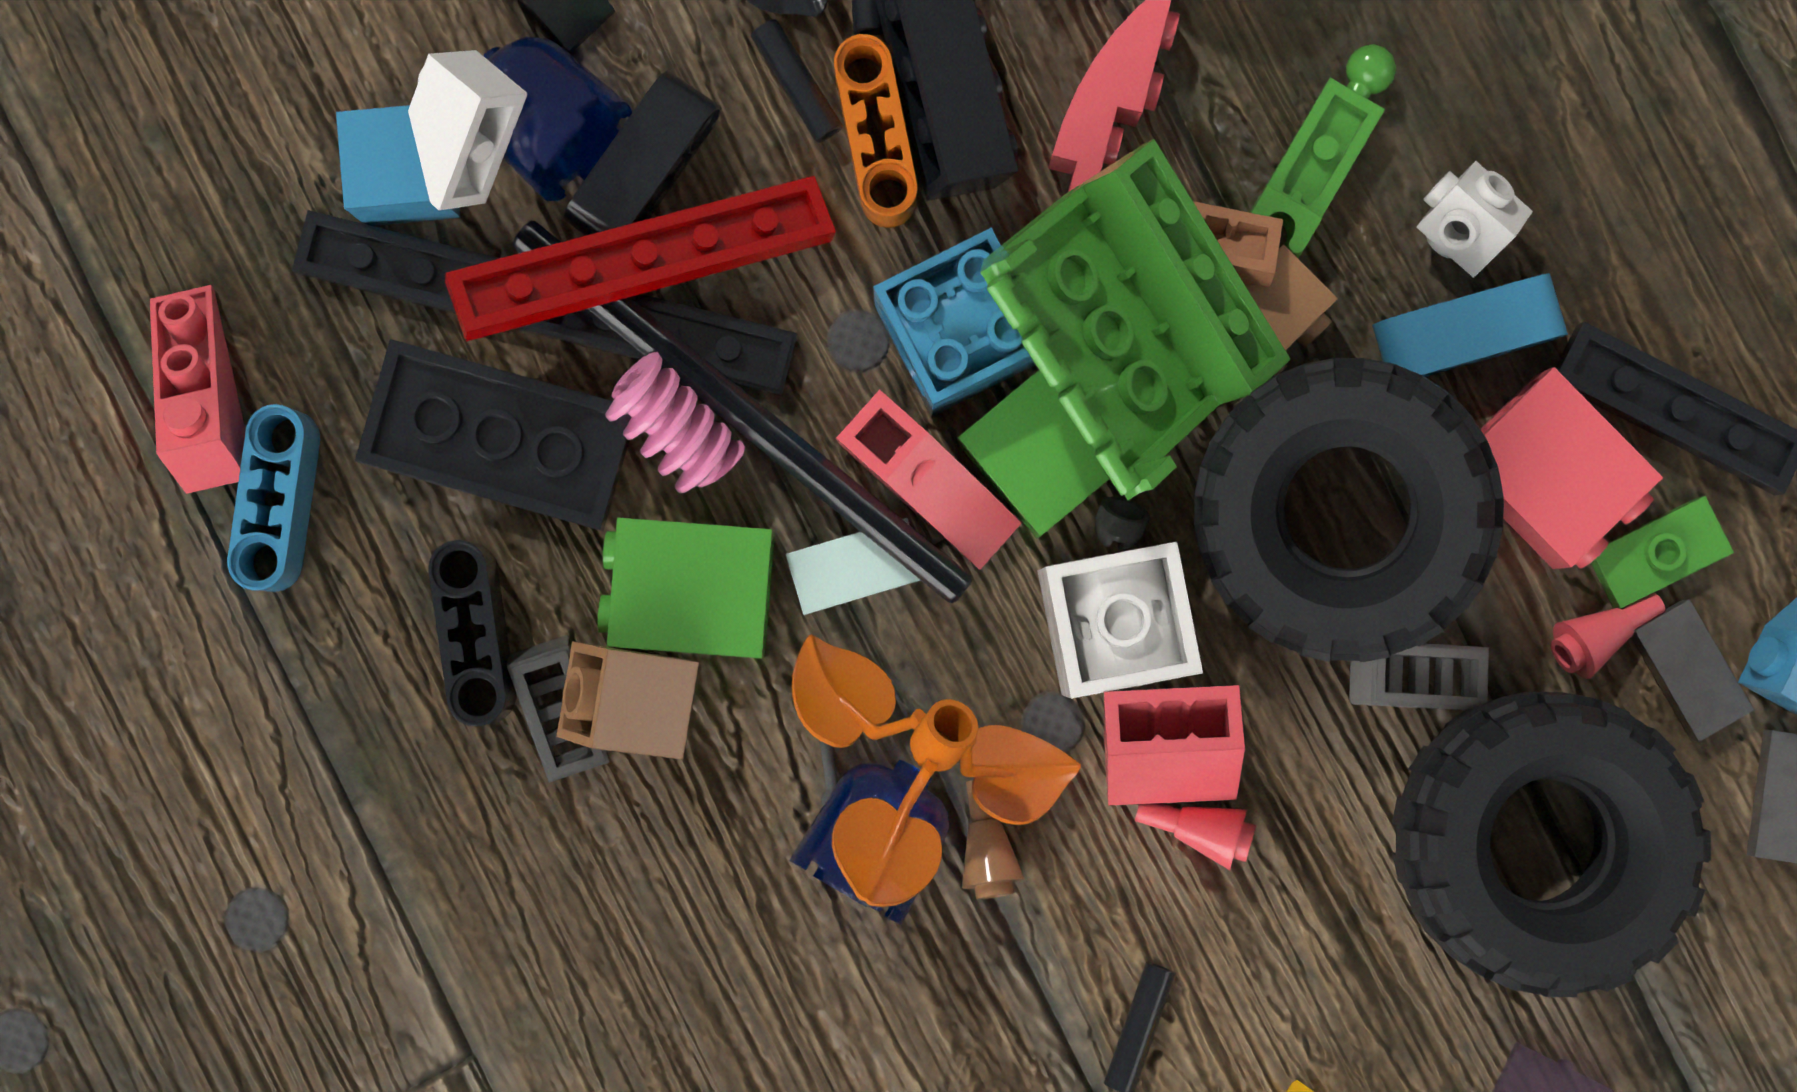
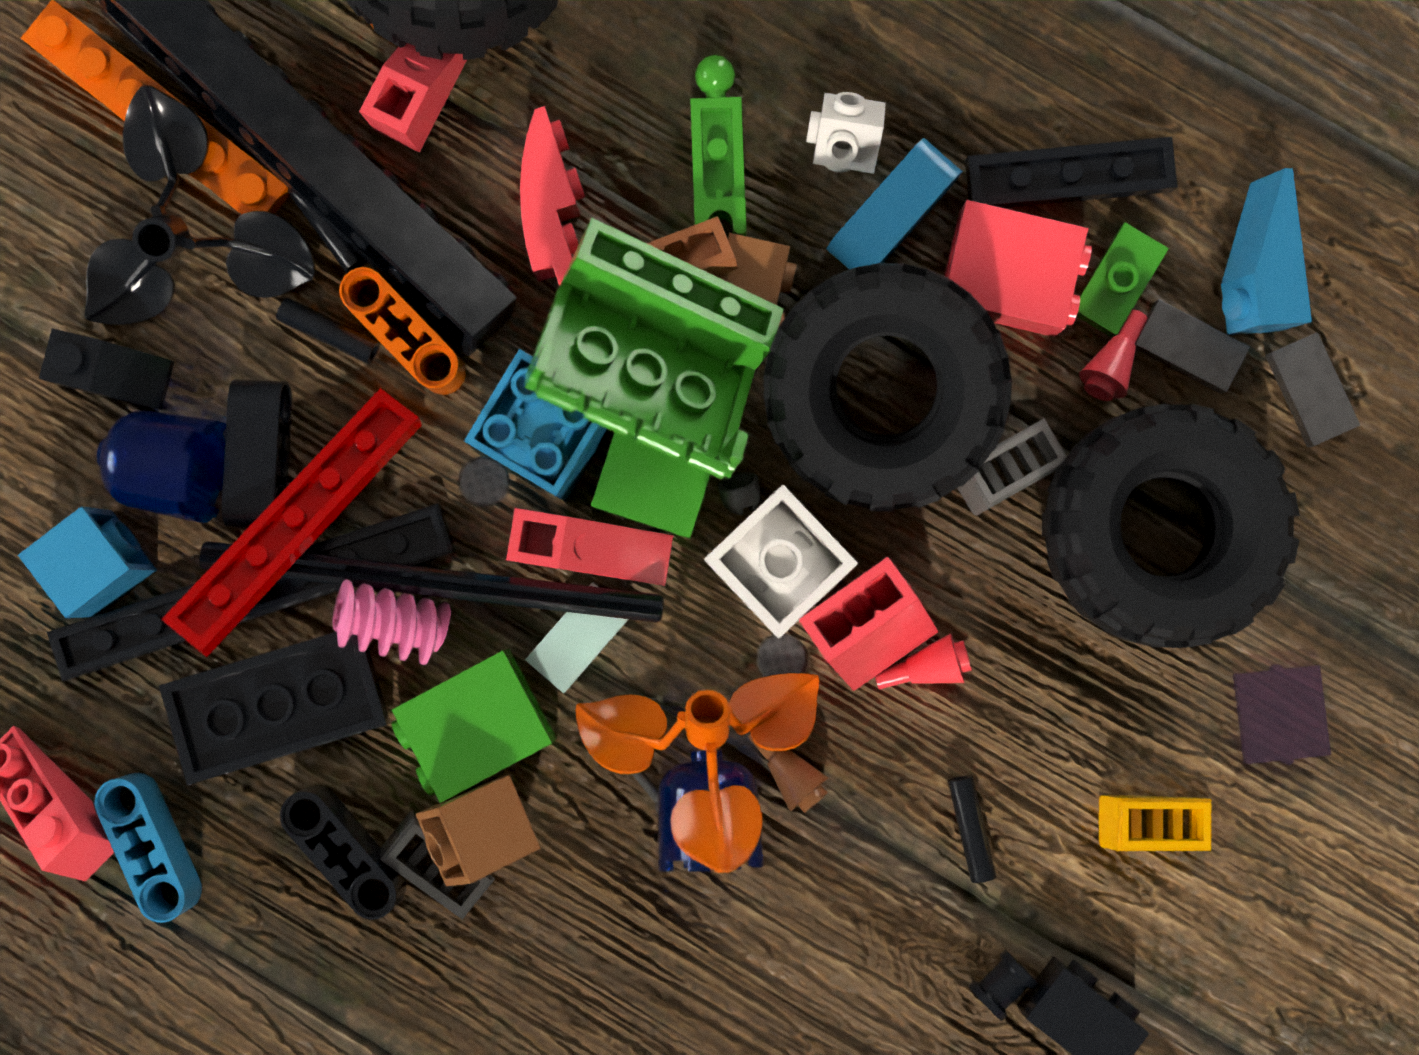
camera: 25 degrees left, 0 degrees up
(462, 125) = (110, 509): white slope -> none

